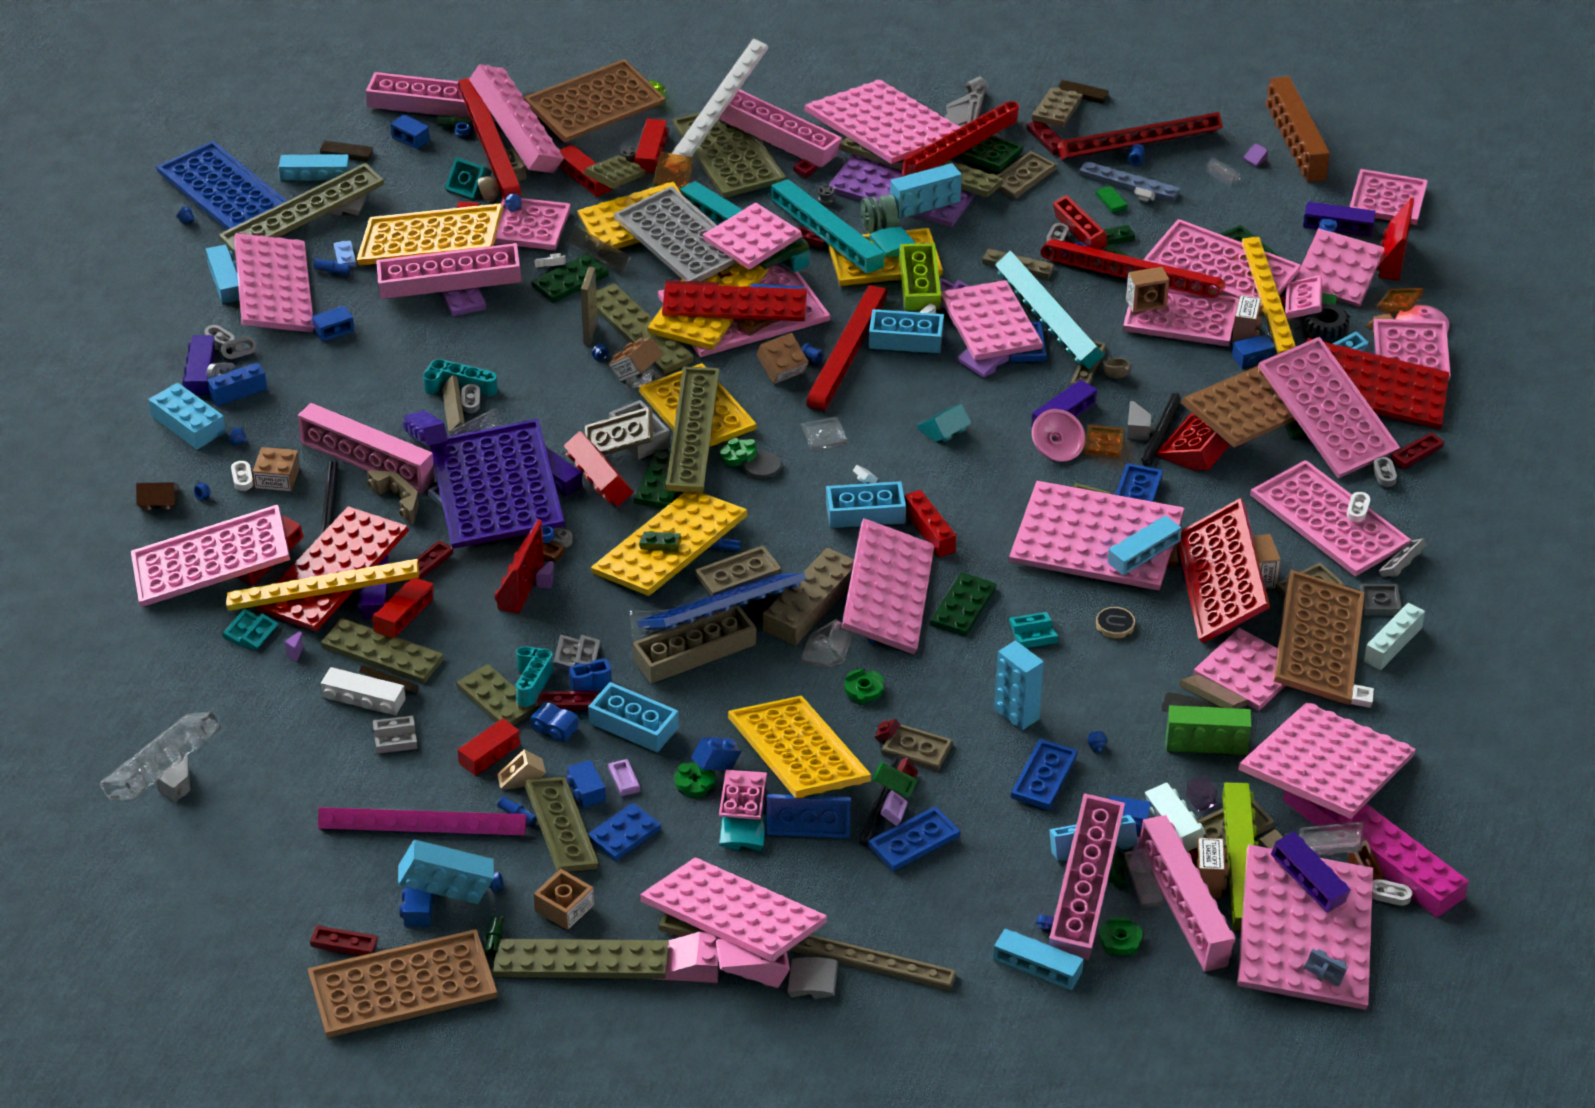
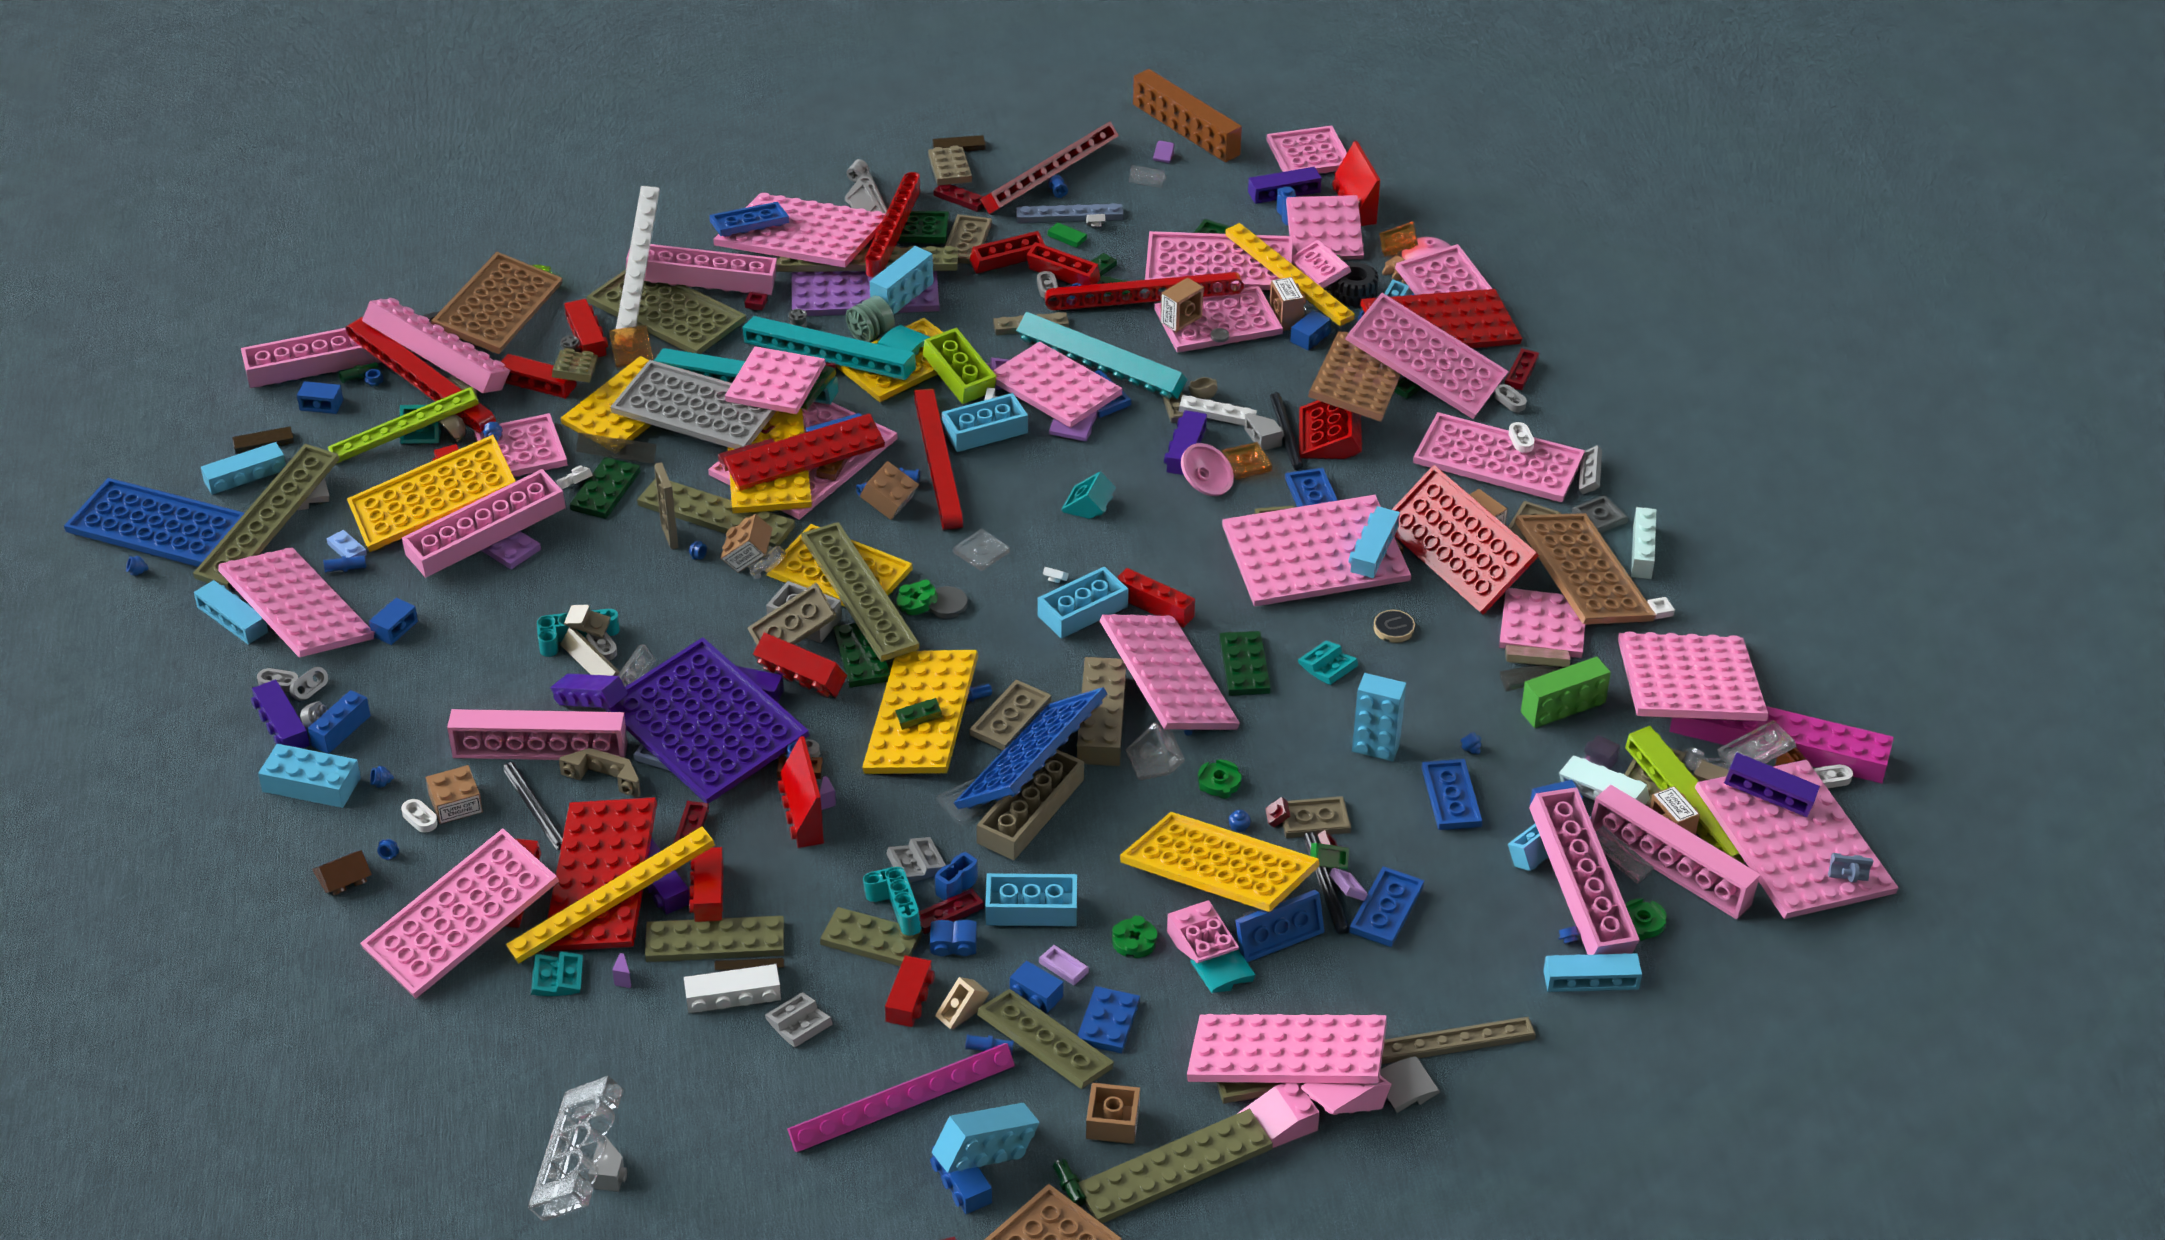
camera: 30 degrees left, 0 degrees up
(449, 174) = (405, 424): none -> lime tile
(467, 375) = (588, 621): none -> dark tan slope
(716, 754) = (1144, 902): blue brick -> none
(843, 97) = (749, 219): none -> blue plate
(852, 725) = (1239, 820): none -> blue plate
(1038, 194) = (1003, 252): none -> red brick
(1112, 389) = (1215, 410): none -> white plate
(1167, 328) = (1219, 335): none -> flat silver piece
(1270, 824) = (1693, 758): none -> clear hinge

